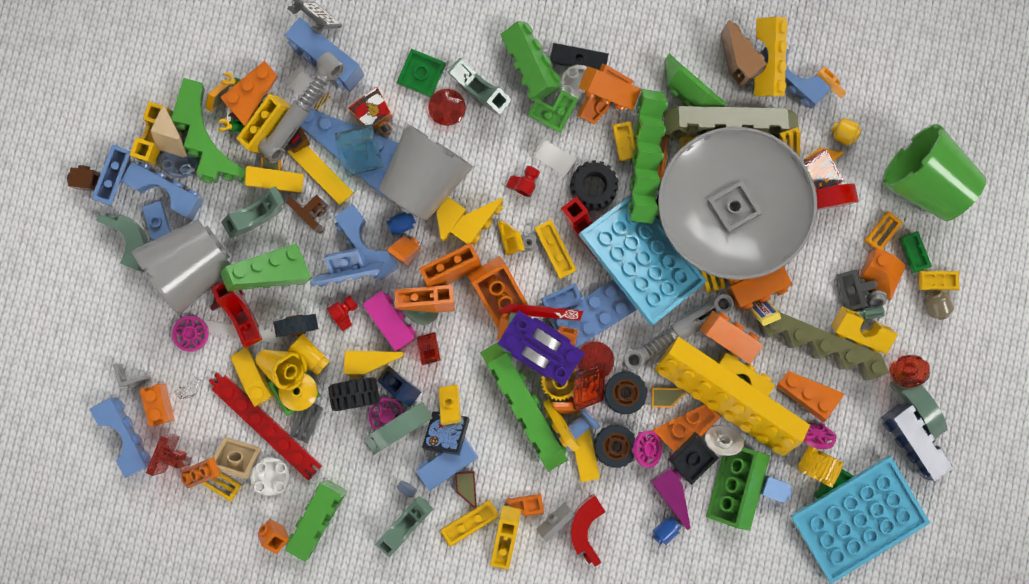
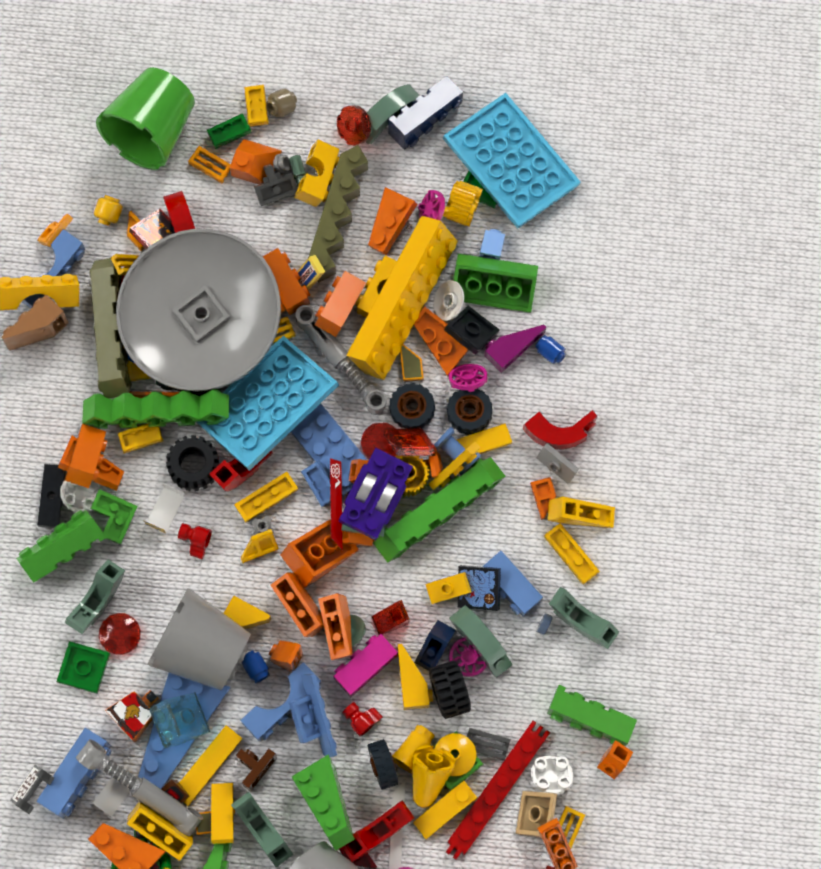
camera: 100 degrees left, 10 degrees down
(466, 487) = (534, 561): olive tile -> none
(473, 223) = (248, 588): yellow slope -> none
(688, 87) = (75, 376): bright green wedge -> none

